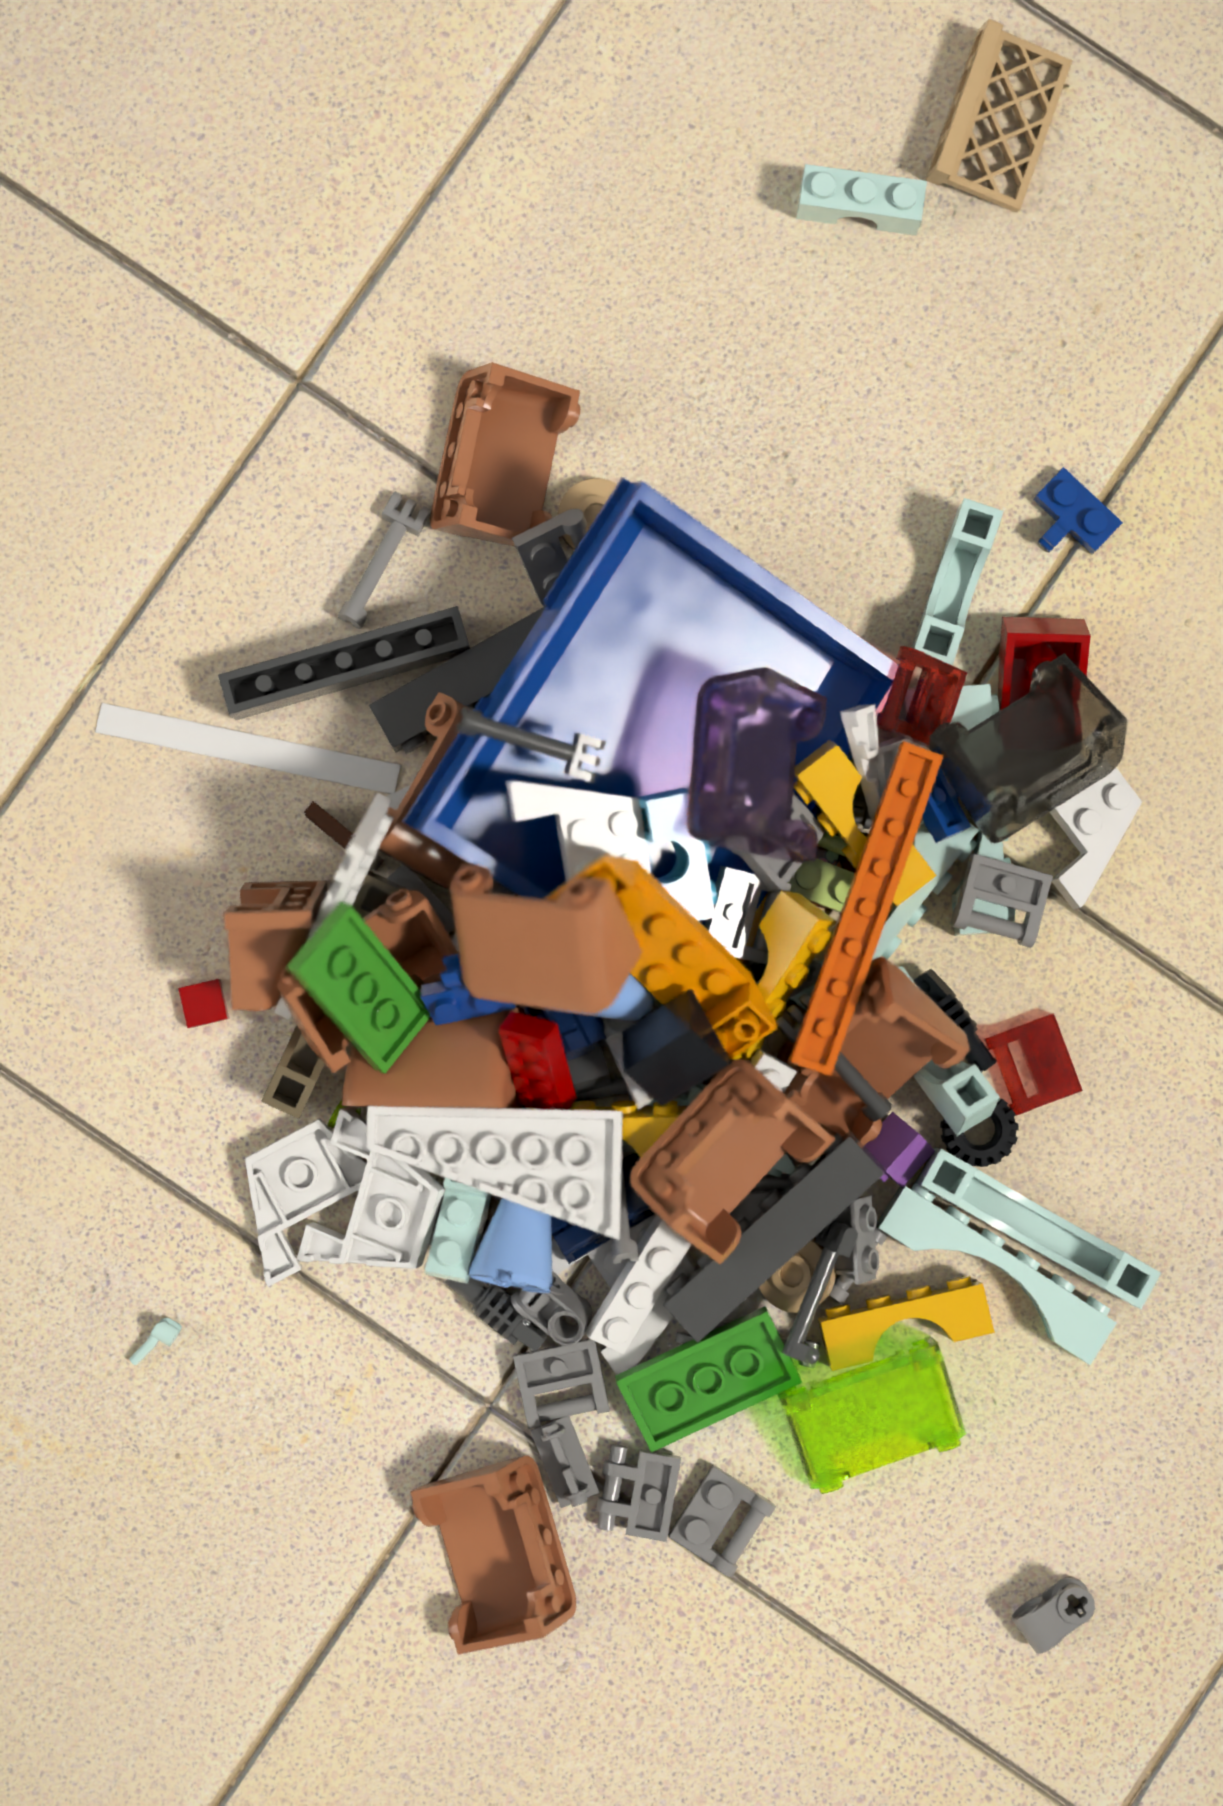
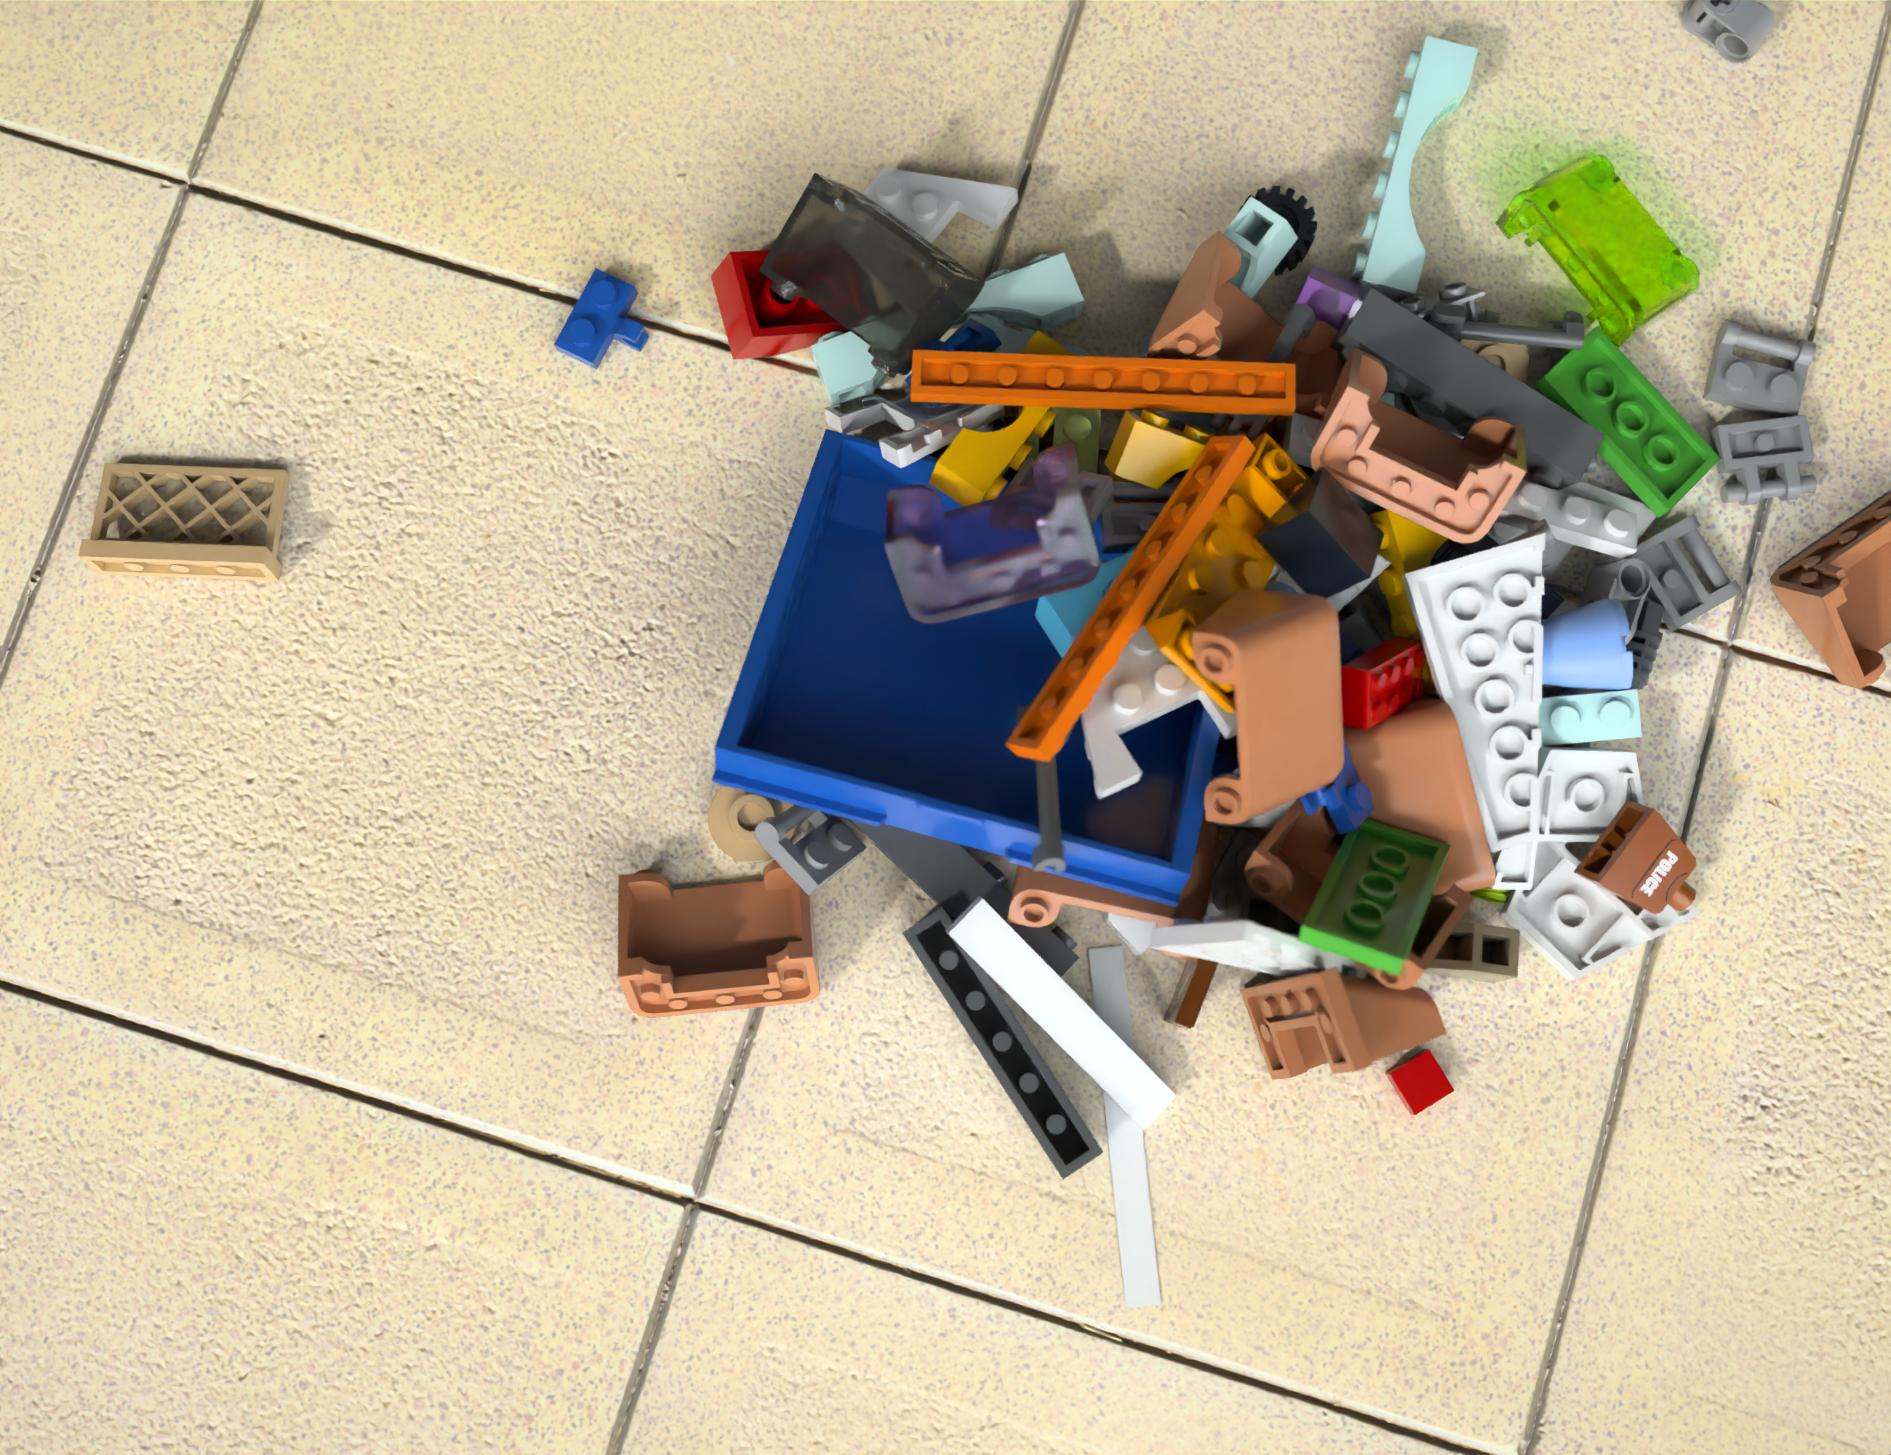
camera: 105 degrees left, 5 degrees down
(164, 1331) = (1784, 1009): light aqua hand -> none
(321, 1240) = (1641, 861): none -> dark orange torso
(352, 717) = (1060, 1012): none -> white tile
(400, 523) = (821, 1031): light grey hinge -> none
(565, 1462) = (1763, 543): light grey hinge -> none
(665, 861) = (1130, 598): none -> orange plate
(838, 193) = (312, 609): light aqua arch -> none
(853, 1334) = (1520, 288): yellow arch -> none
(932, 700) = (849, 394): clear red plate -> none
(946, 1000) = (1160, 292): black hinge -> none
(956, 580) = (674, 415): light aqua arch -> none
(1005, 886) = (1022, 264): light grey plate -> none
(1038, 1228) = (1360, 113): light aqua arch -> none
(1046, 1061) = (1179, 188): clear red plate -> none

